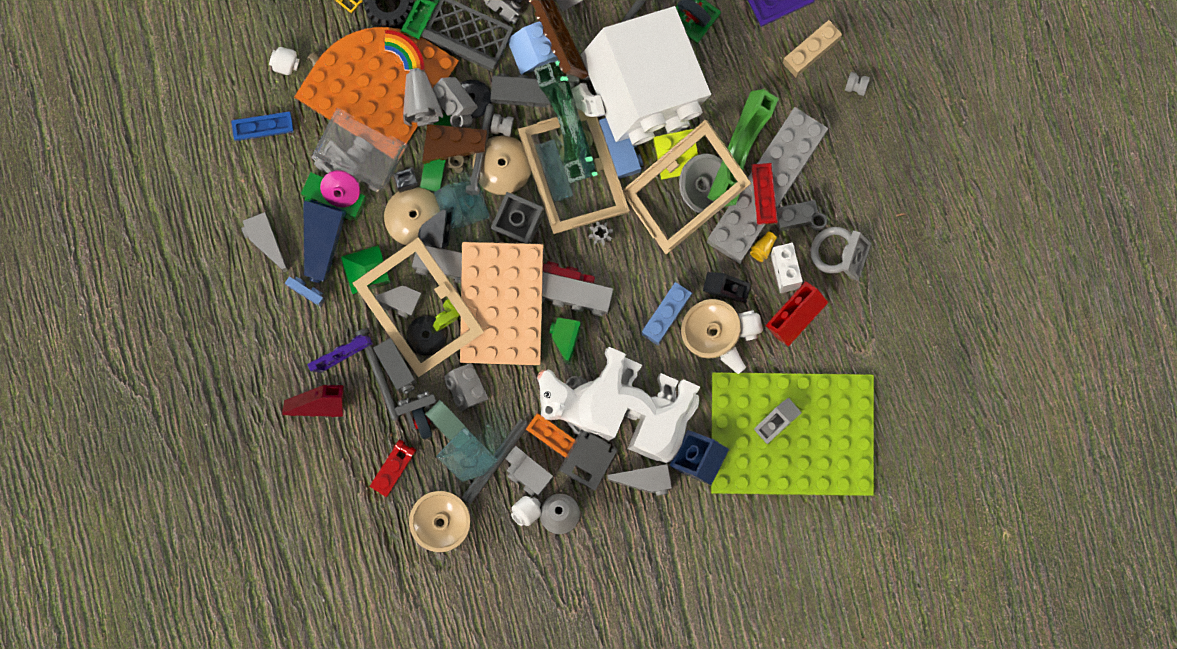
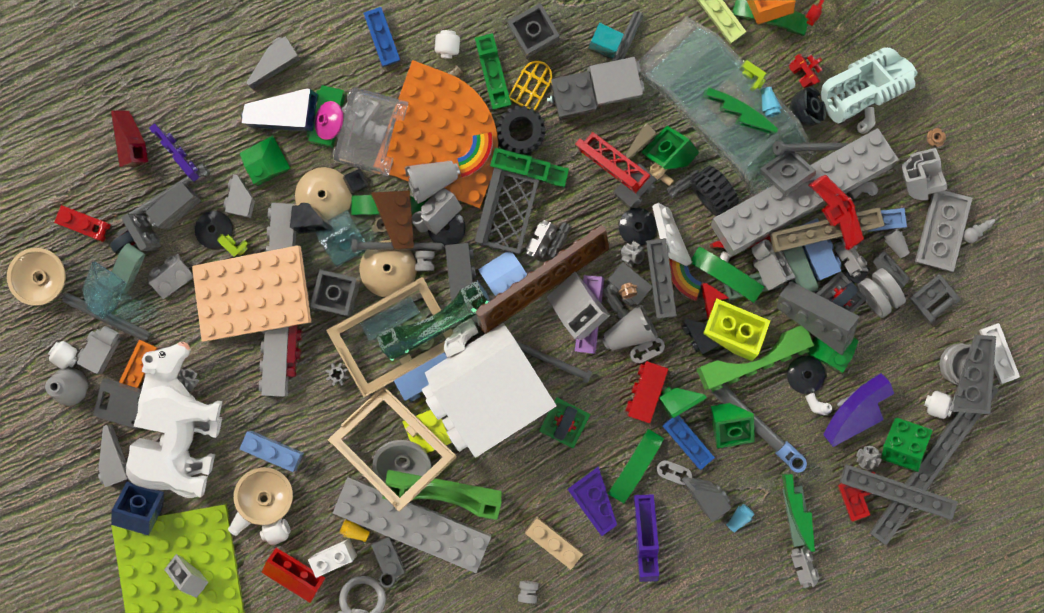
camera: 75 degrees right, 5 degrees up
(298, 285) = (235, 101): medium blue plate -> none
(322, 21) = (492, 71): none -> green slope
(444, 289) = (250, 238): tan door -> none
(565, 336) = (230, 359): green slope -> none
(726, 287) = (308, 502): black slope -> none
(764, 193) = (398, 524): red tile -> none

